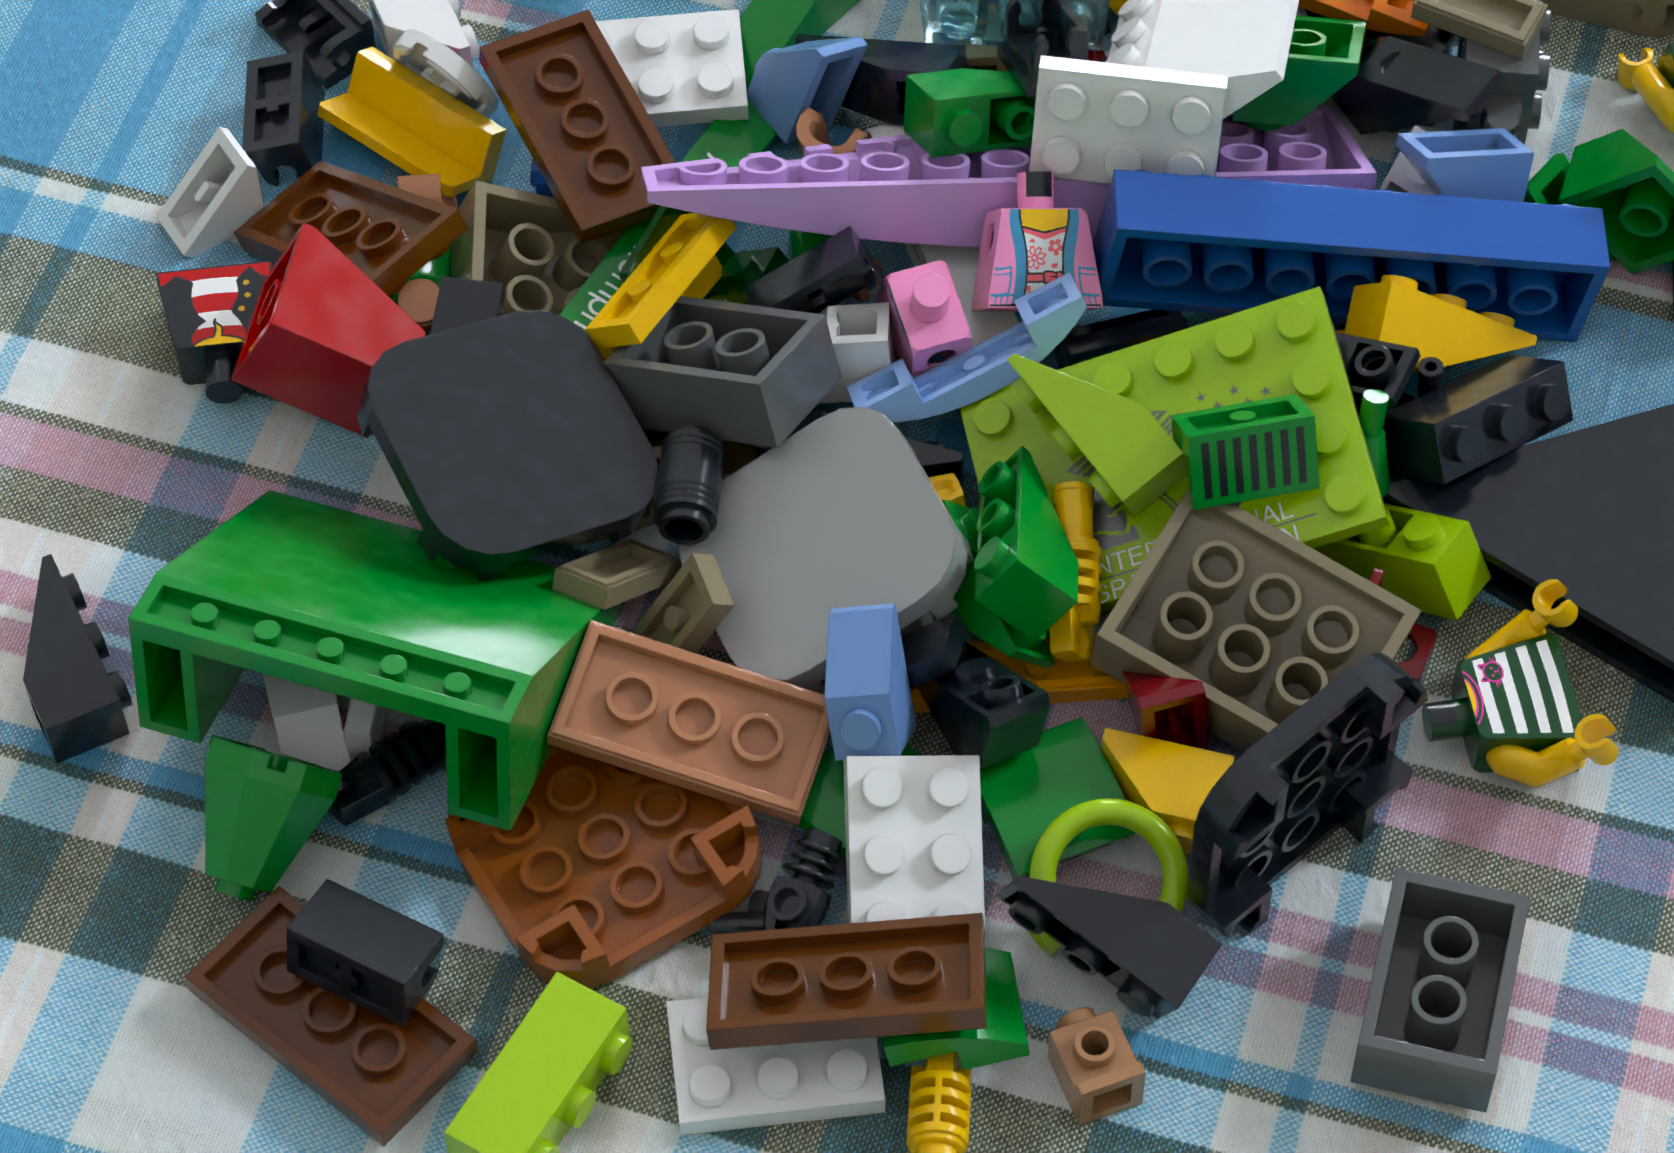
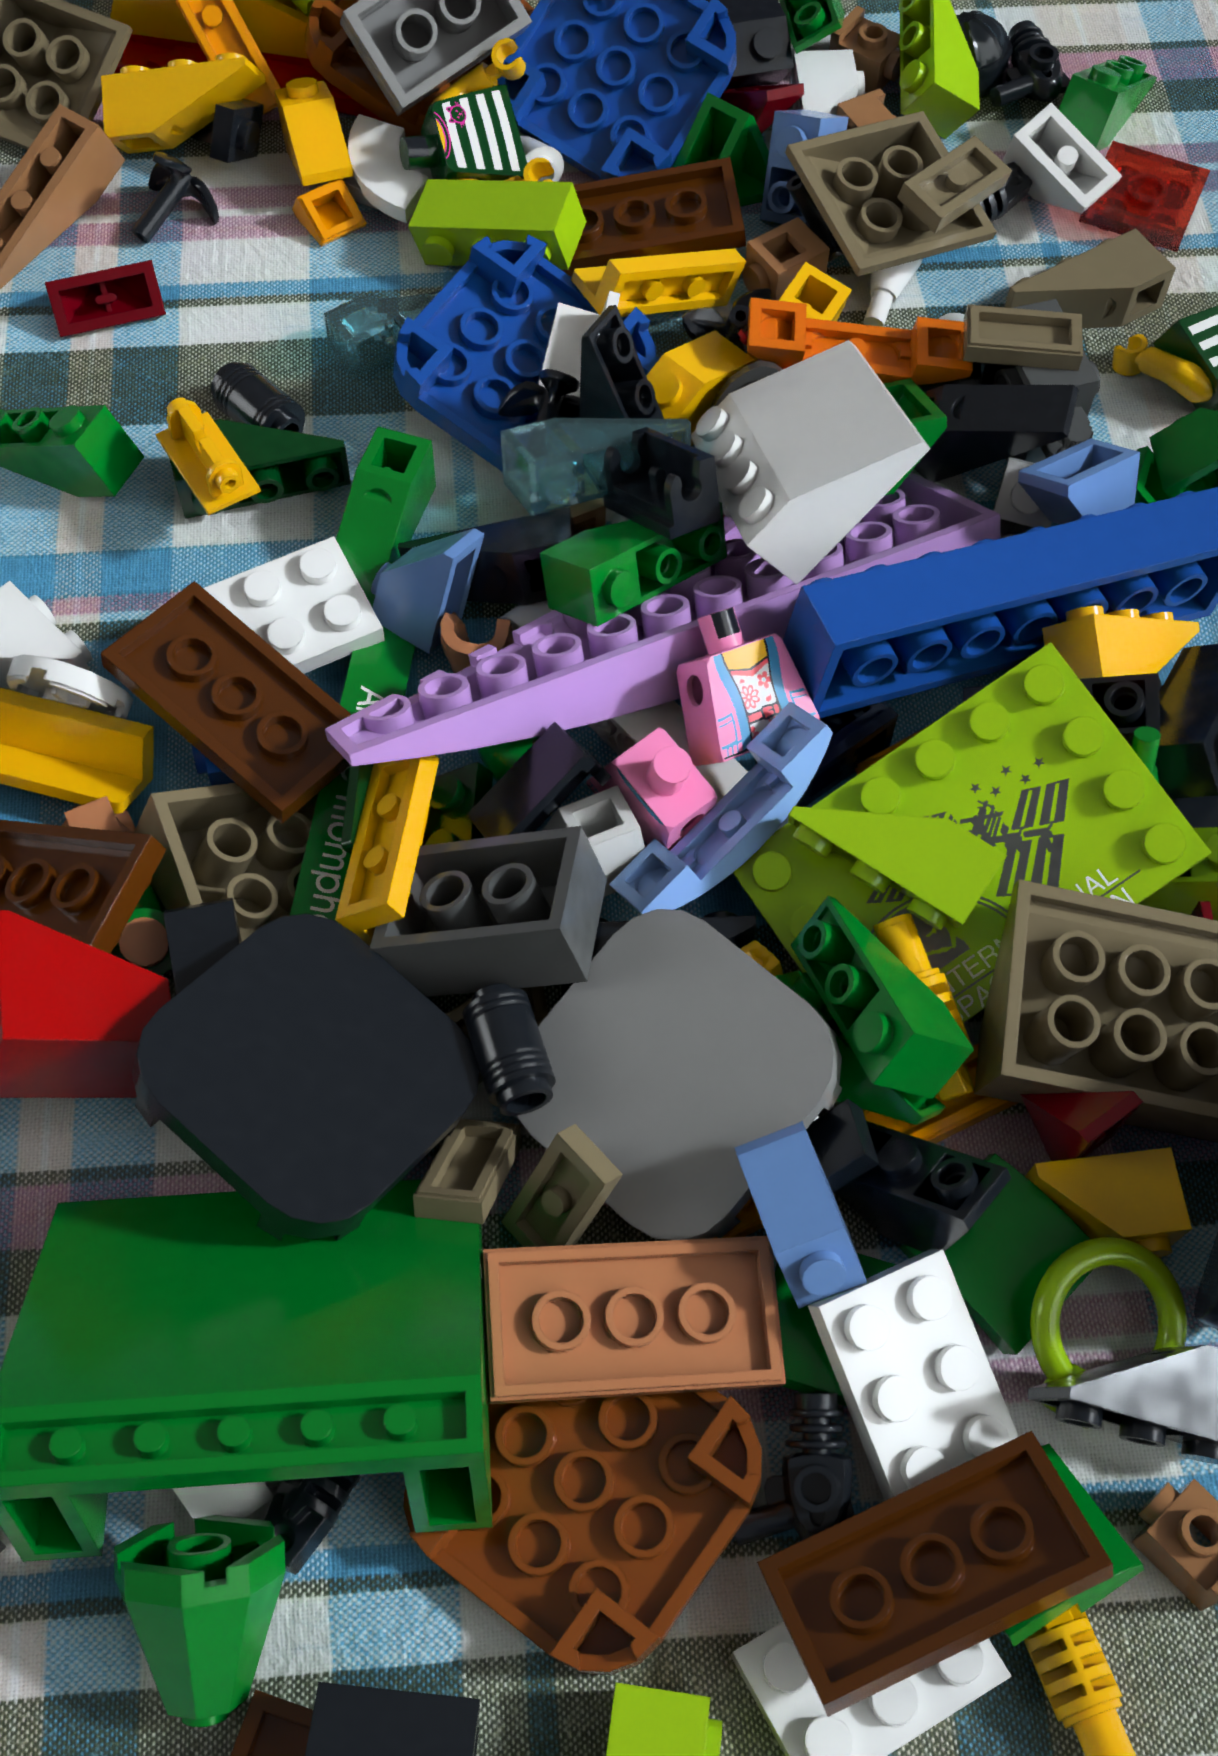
camera: 25 degrees left, 5 degrees up
(1124, 118) = (784, 533): white plate -> none
(1248, 450) = (1063, 828): green panel -> none

